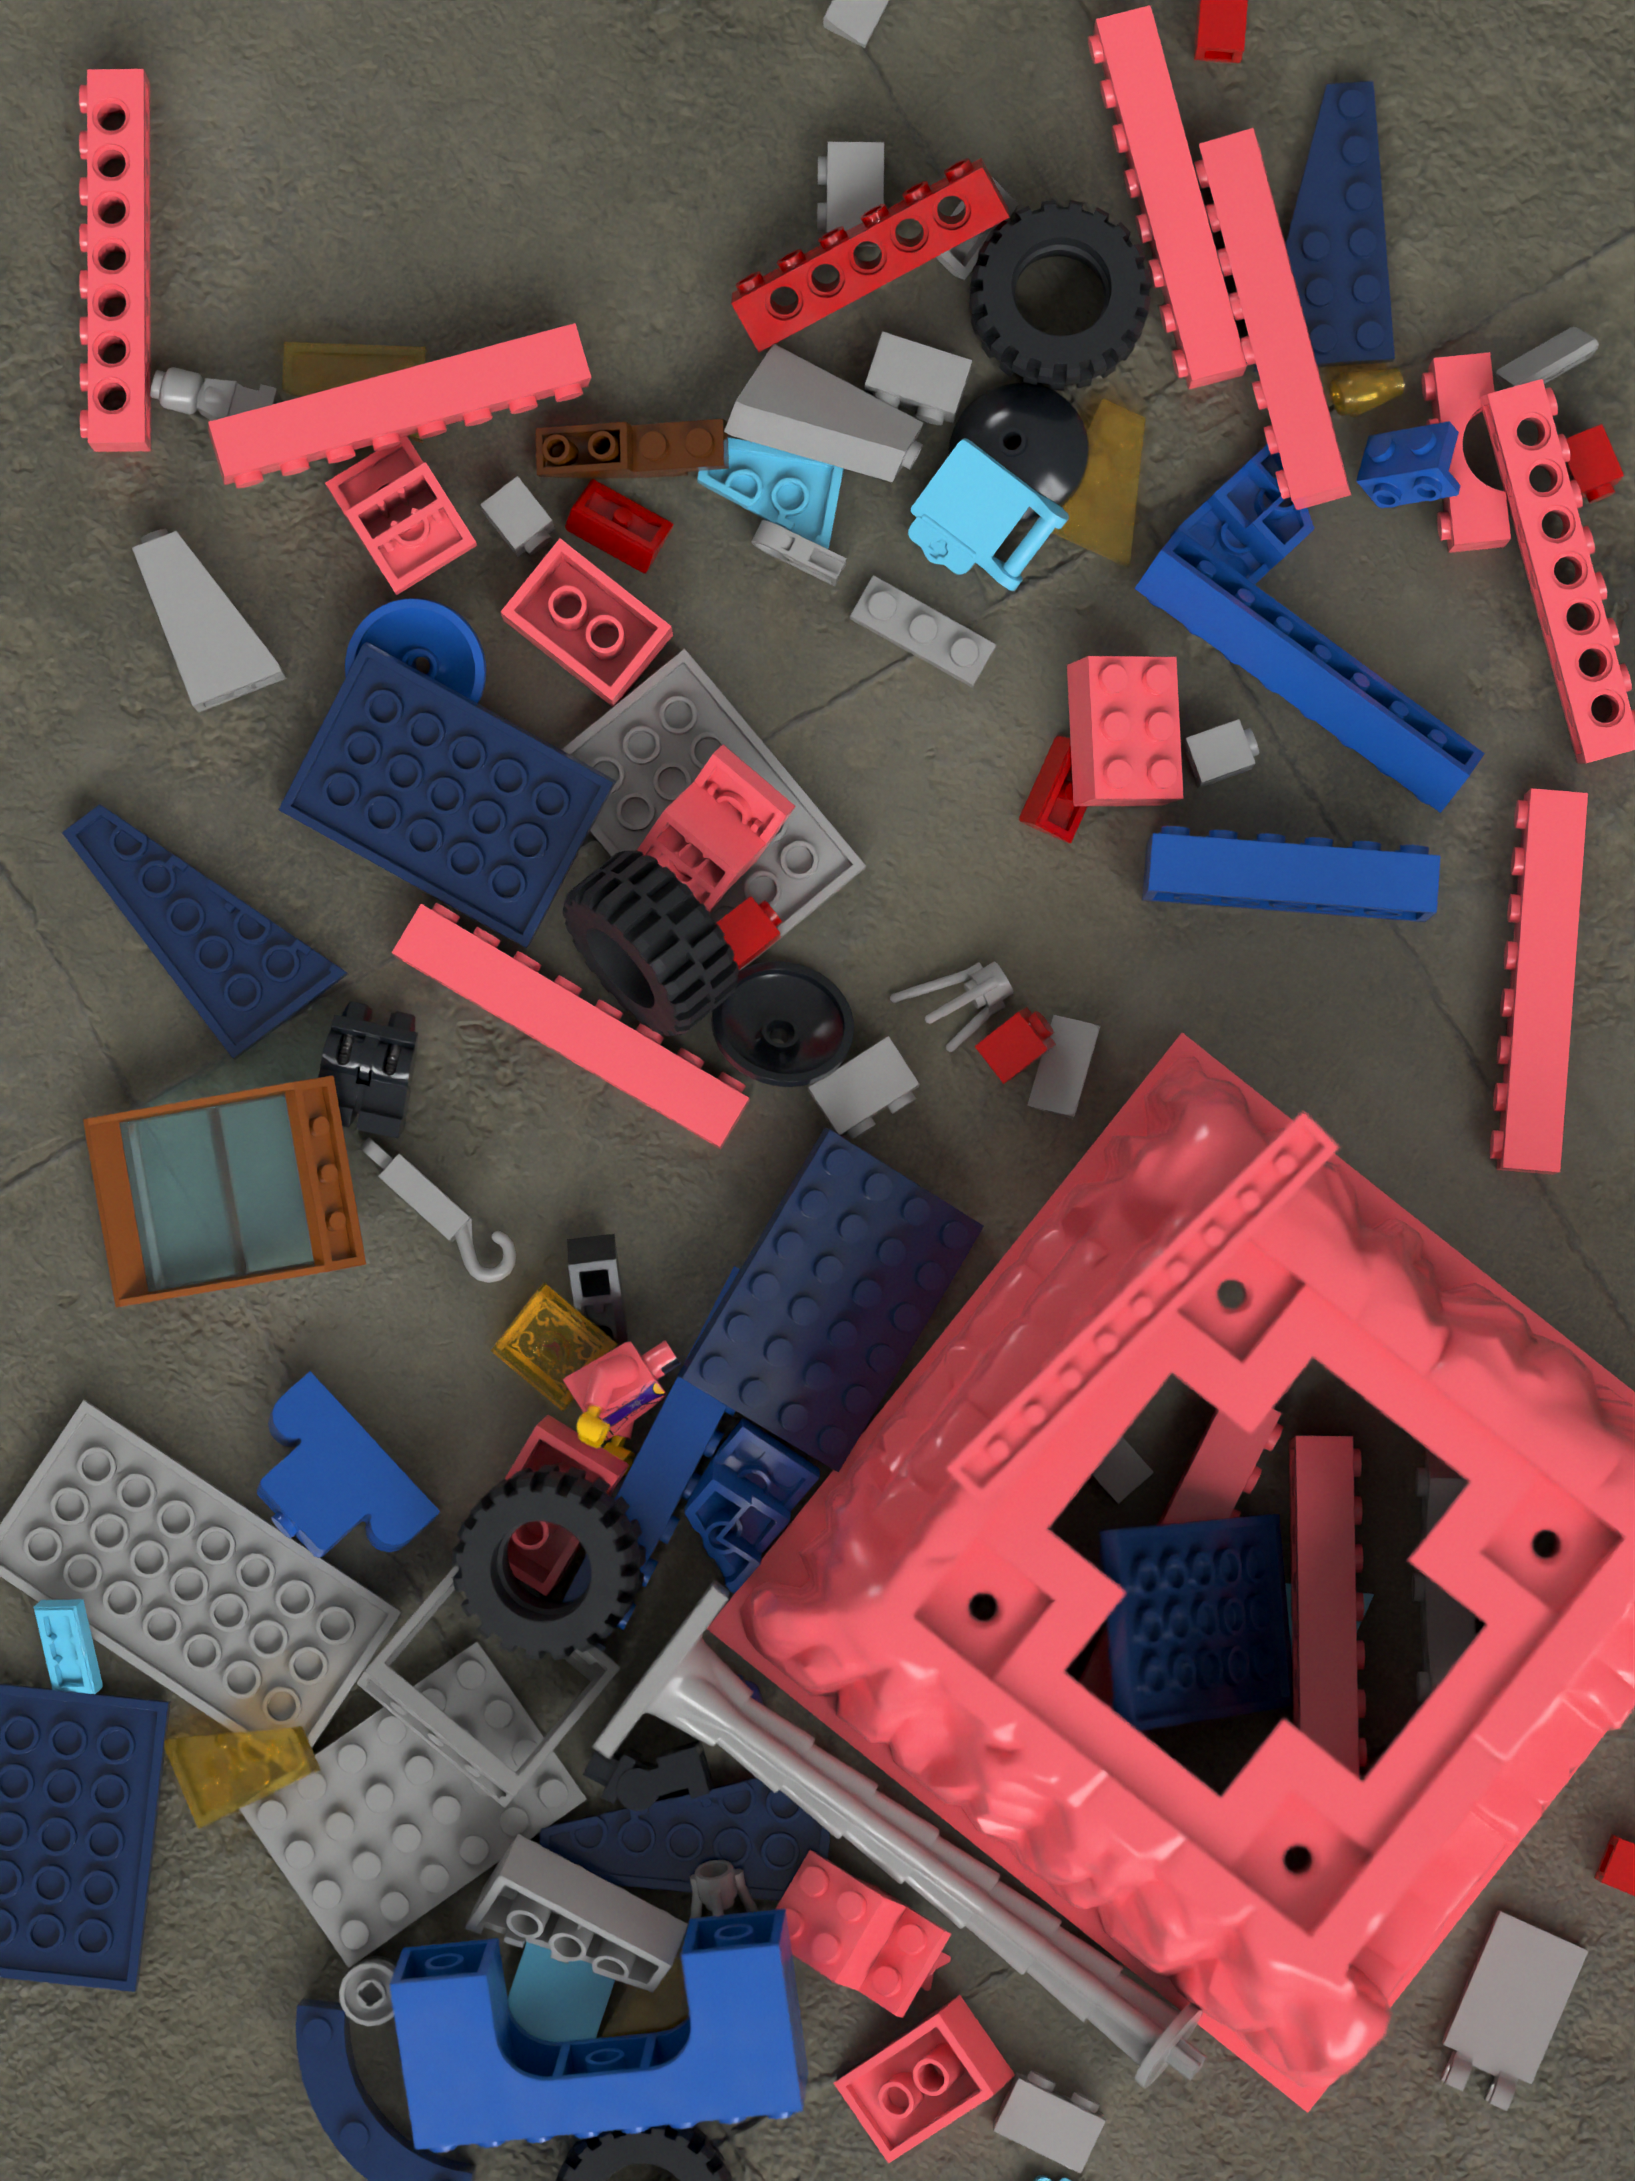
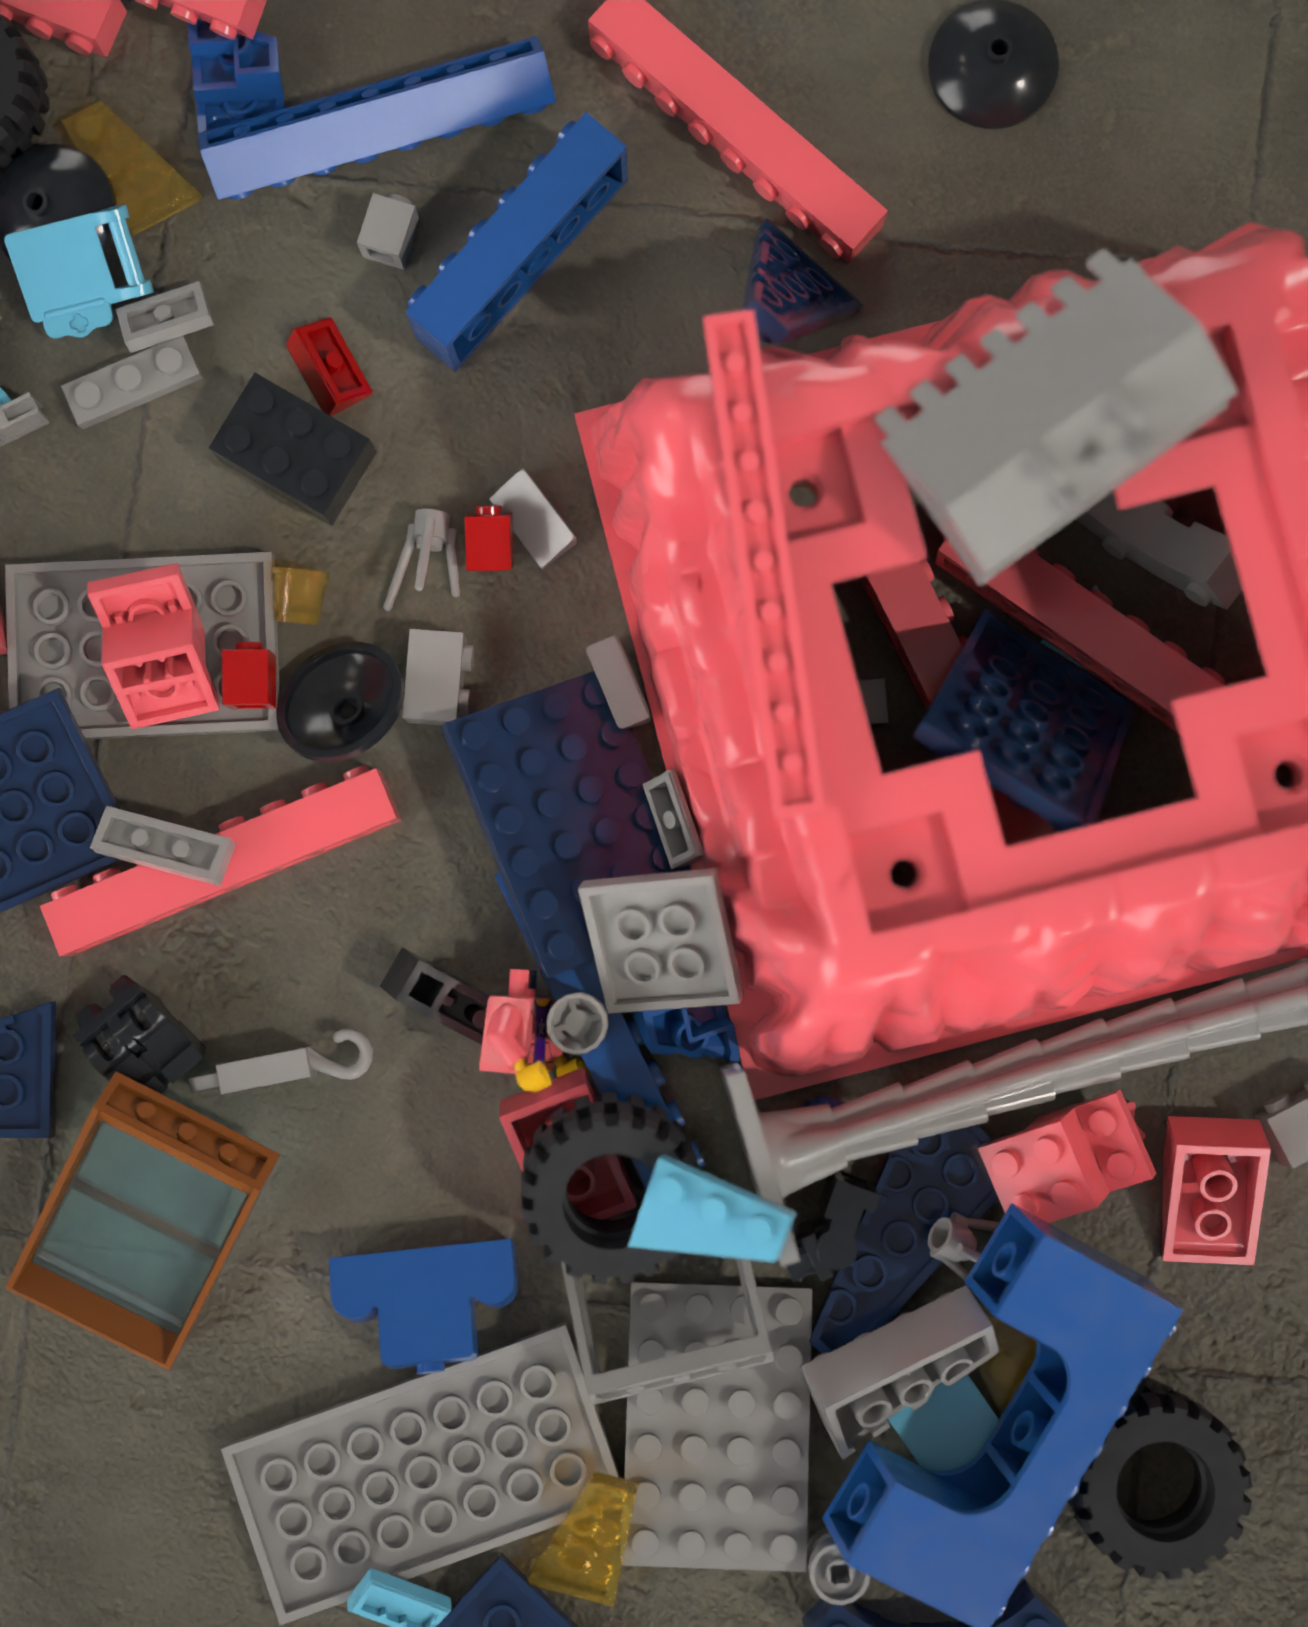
camera: 50 degrees left, 0 degrees up
(549, 970) = (163, 845): none -> light grey plate
(551, 1343) = (446, 1057): clear yellow tile -> none
(588, 1656) = (708, 1216): none -> medium azure wing
(651, 942) = (196, 750): black tyre -> none
(663, 1432) = (577, 1023): none -> light grey wheel
(783, 1451) = (661, 941): none -> light grey plate
(847, 917) = (298, 594): none -> clear yellow piece
(894, 1383) = (673, 819): none -> light grey slope
(968, 817) = (293, 449): none -> black brick
(976, 1248) = (618, 683): none -> light grey slope
(999, 618) = (164, 317): none -> light grey plate
(1125, 731) = (317, 283): coral brick -> none
(1417, 1146) = (792, 290): none -> dark blue wing
(1435, 1450) = (1056, 414): none -> light grey piece

